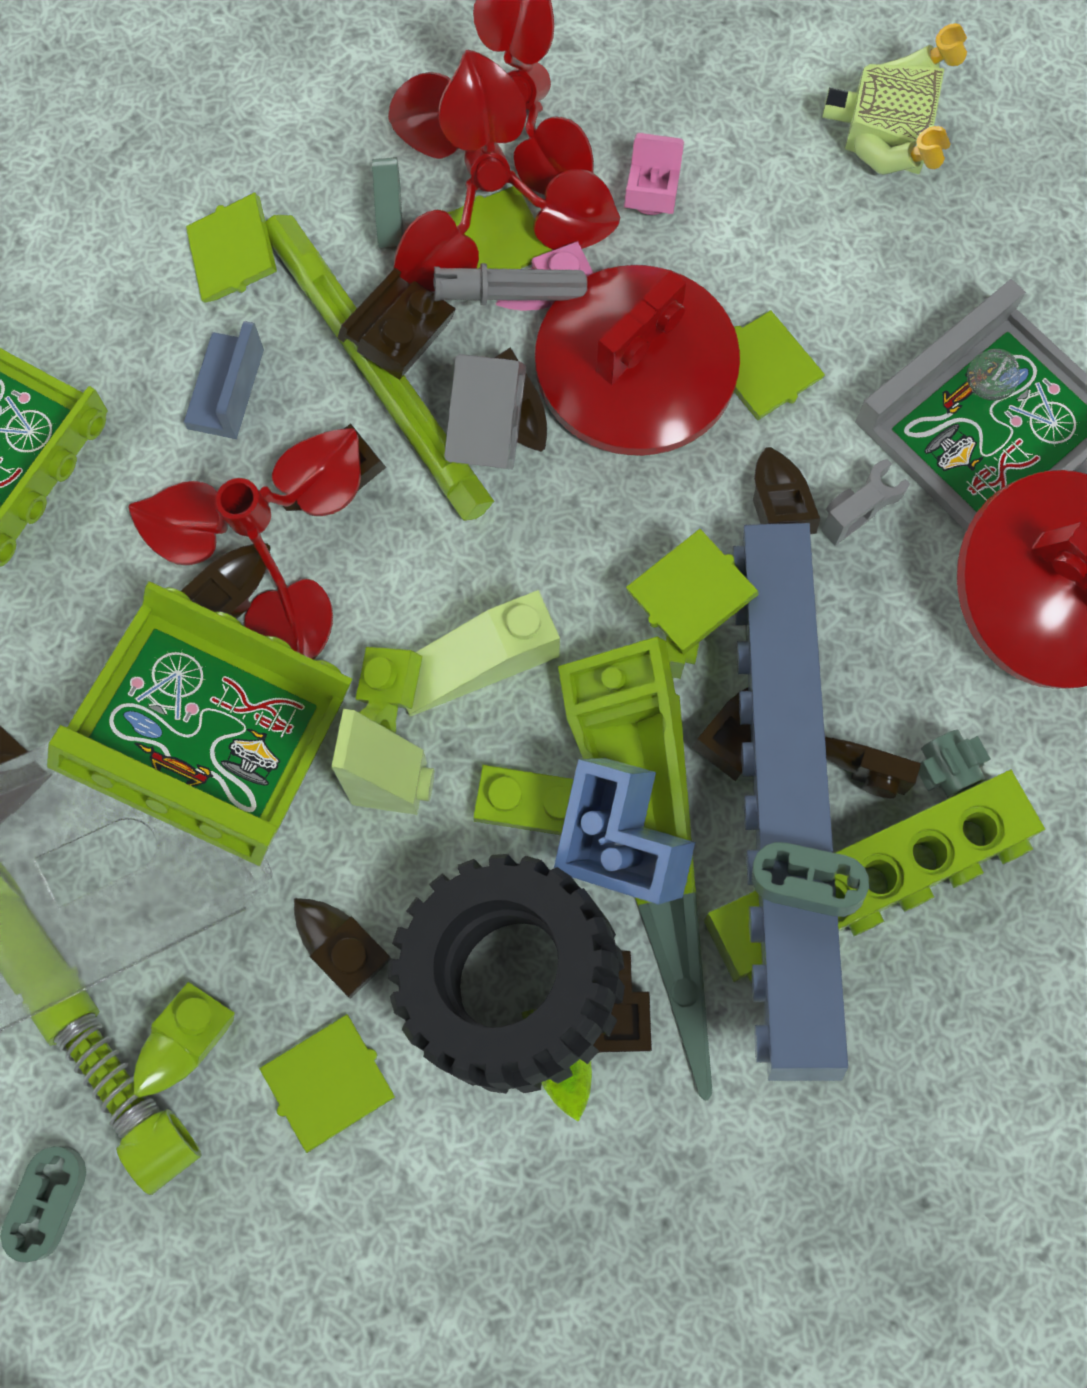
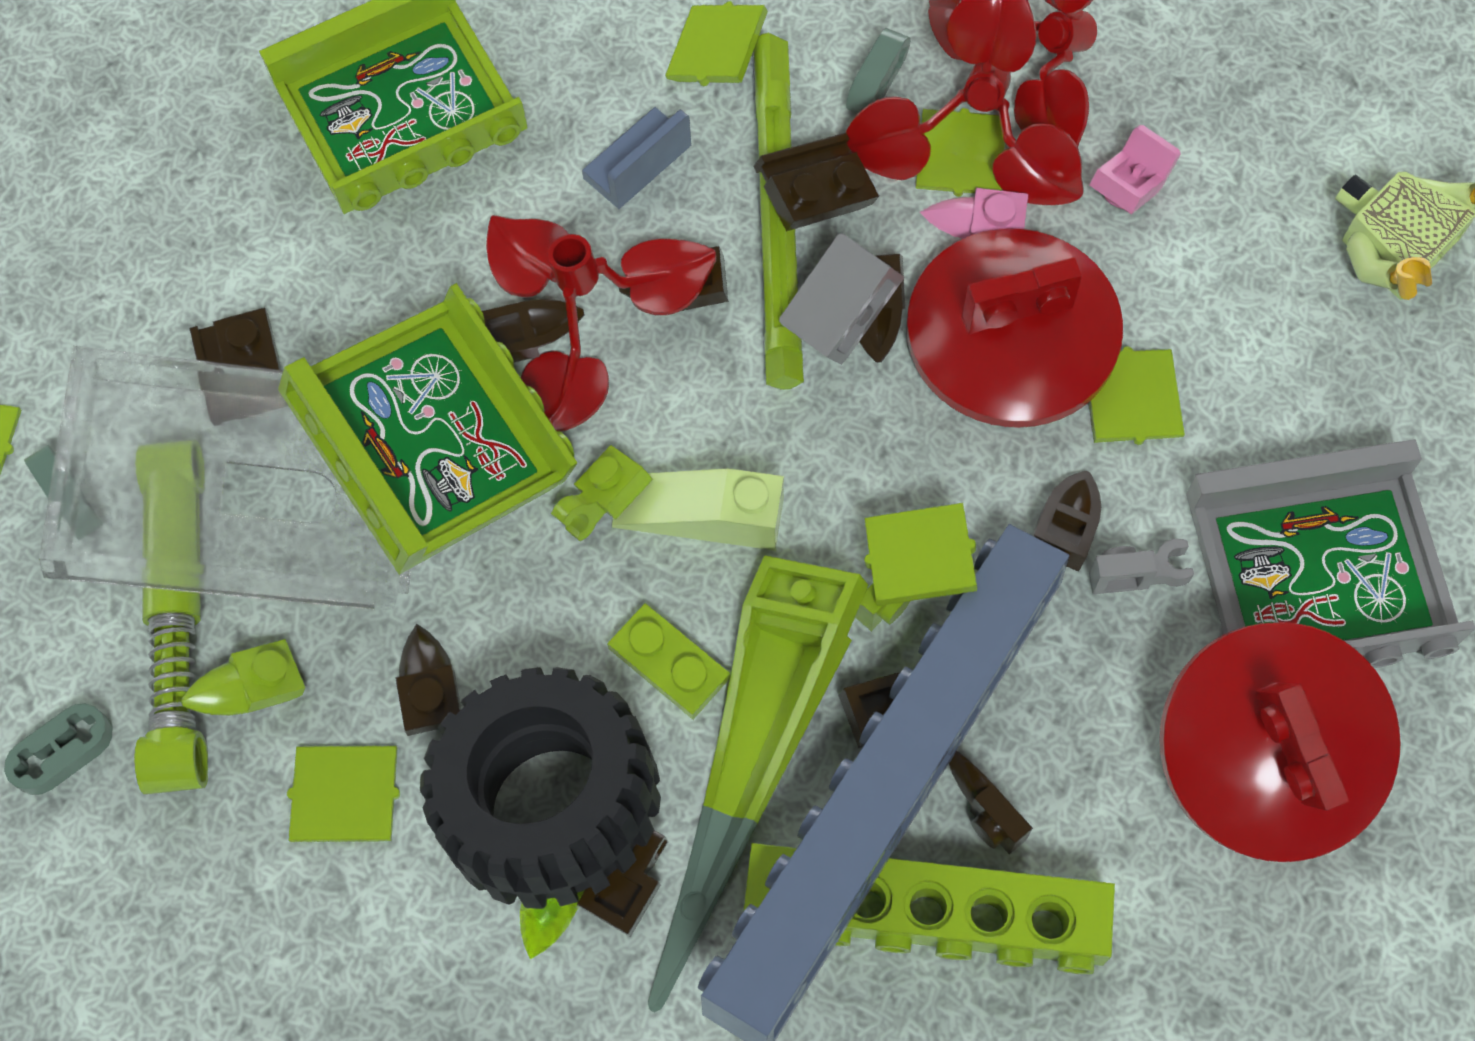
camera: 35 degrees right, 5 degrees down
(380, 766) = (547, 546): yellowish green slope -> none
(508, 284) = (934, 198): light grey axle -> none
(607, 837) = (706, 723): medium blue brick -> none
(812, 865) = (853, 846): sand green beam -> none
(953, 763) = (1068, 847): sand green gear -> none
(993, 374) = (1345, 521): clear plate -> none

